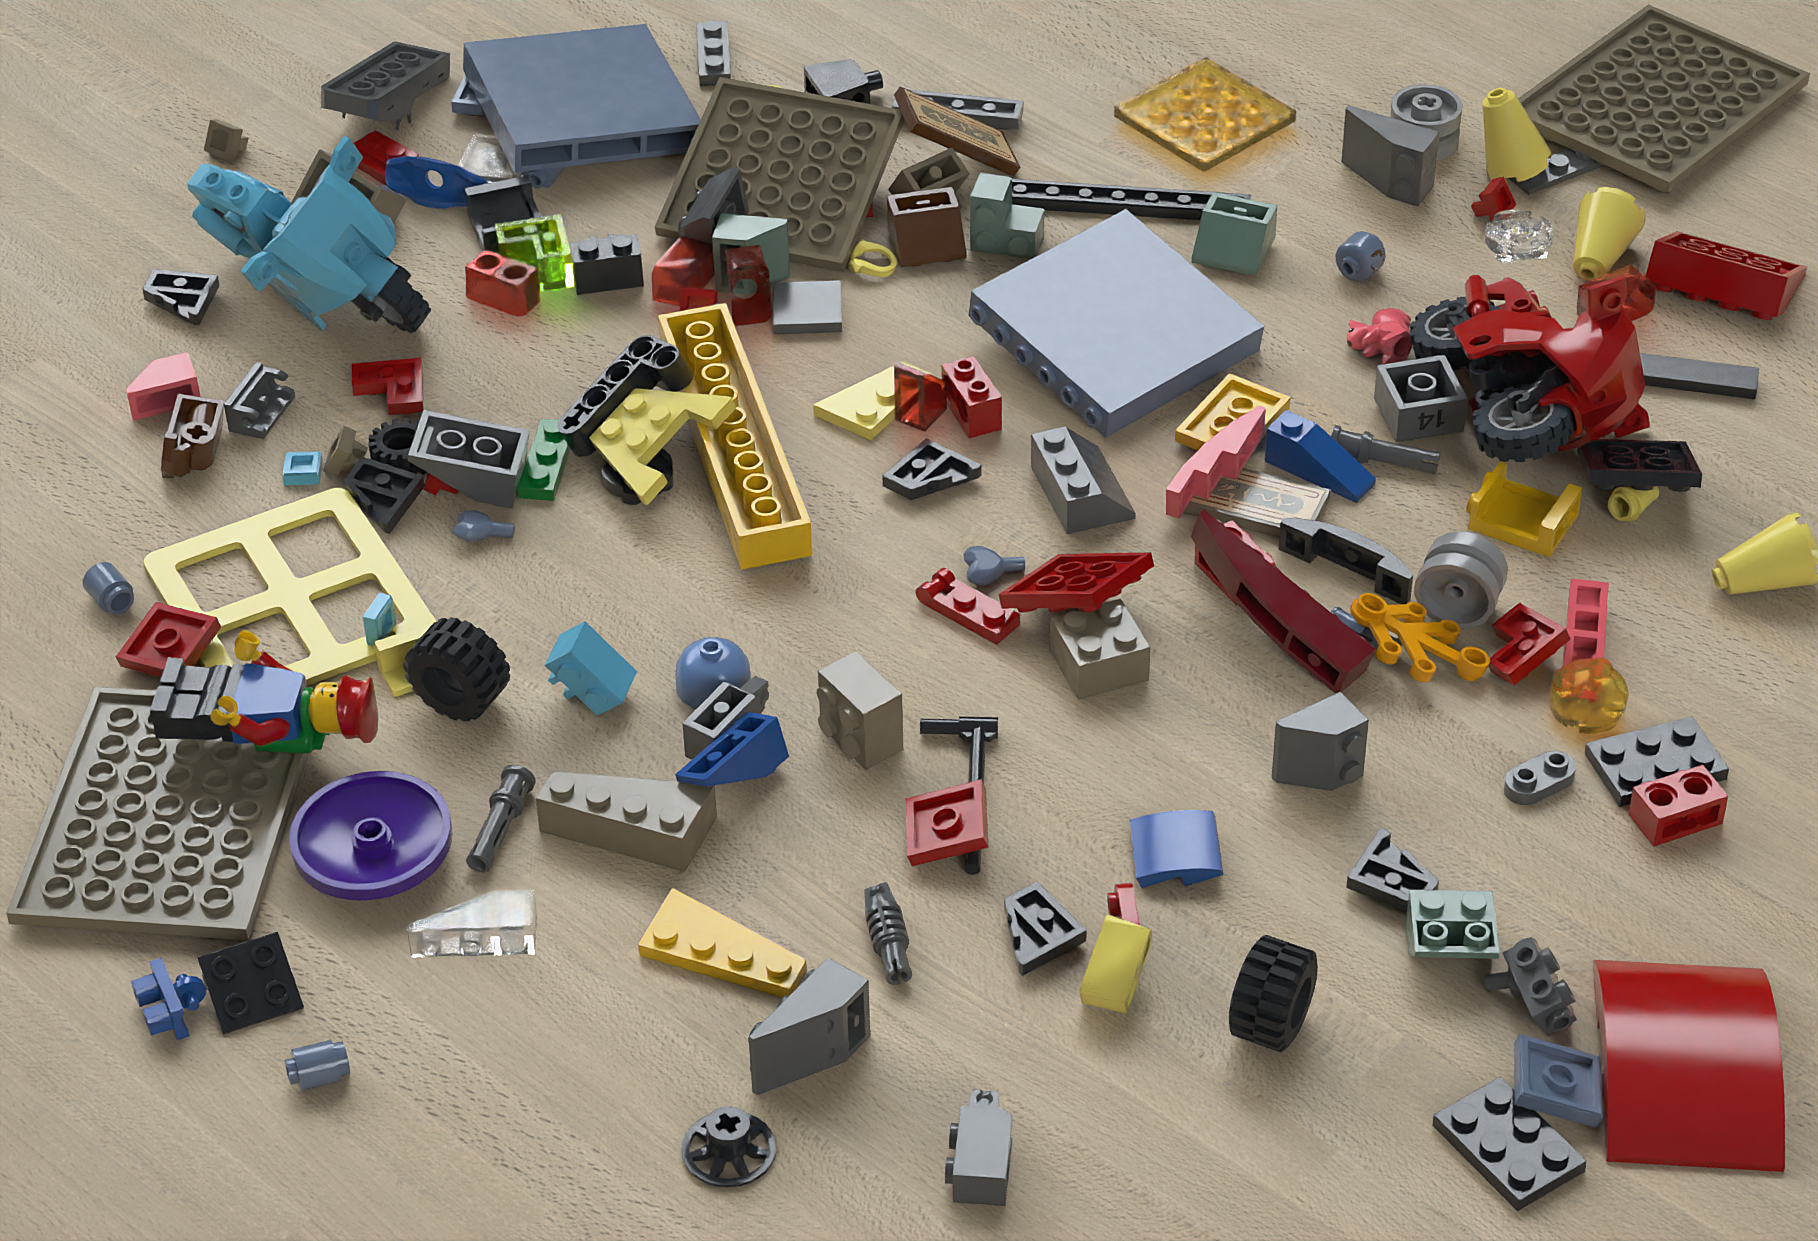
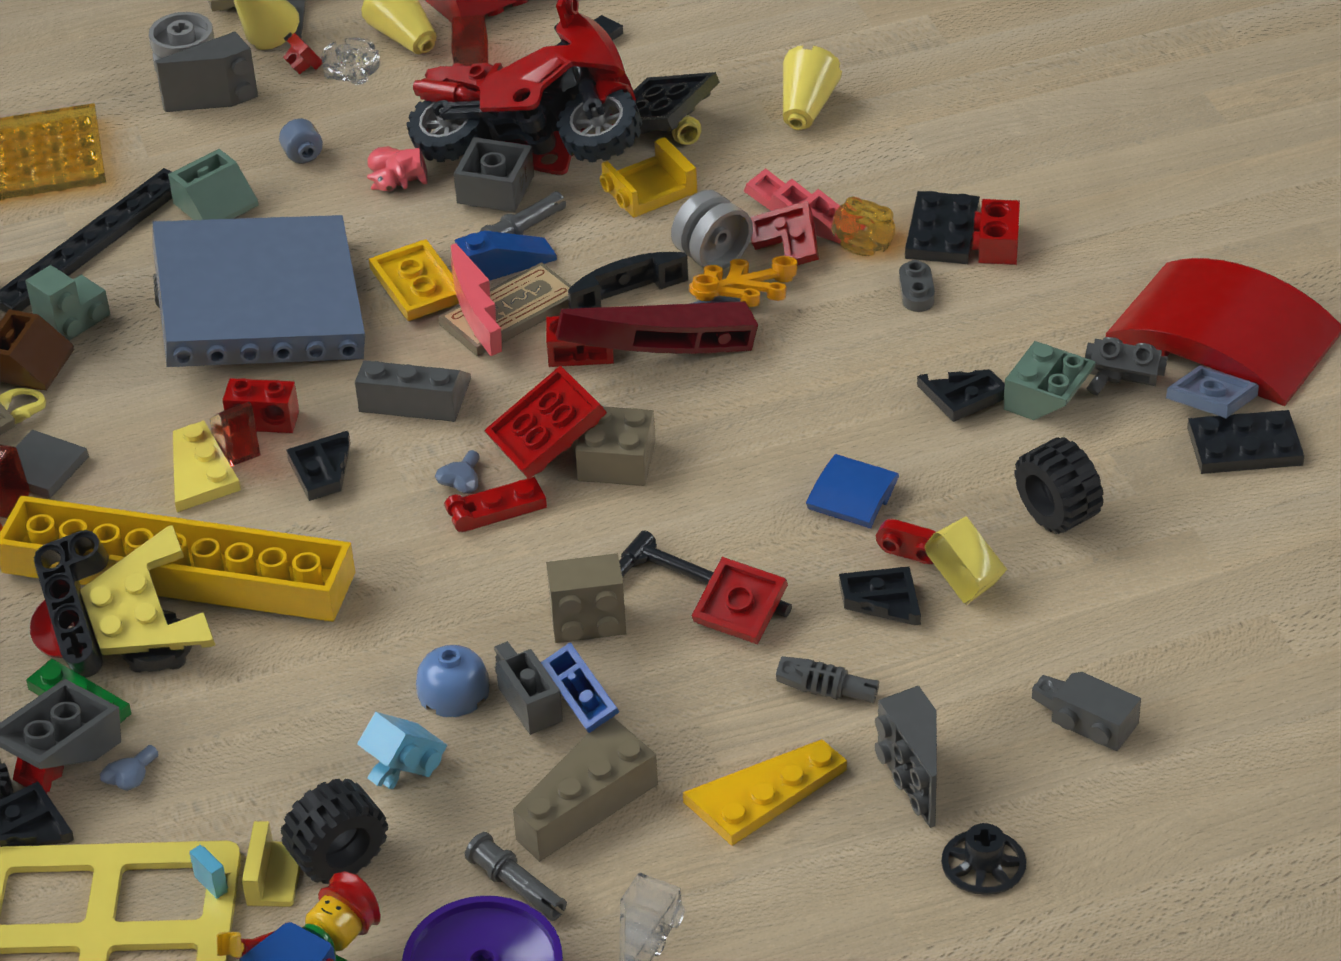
camera: 60 degrees left, 0 degrees up
(1321, 745) = (826, 364): dark grey slope -> none

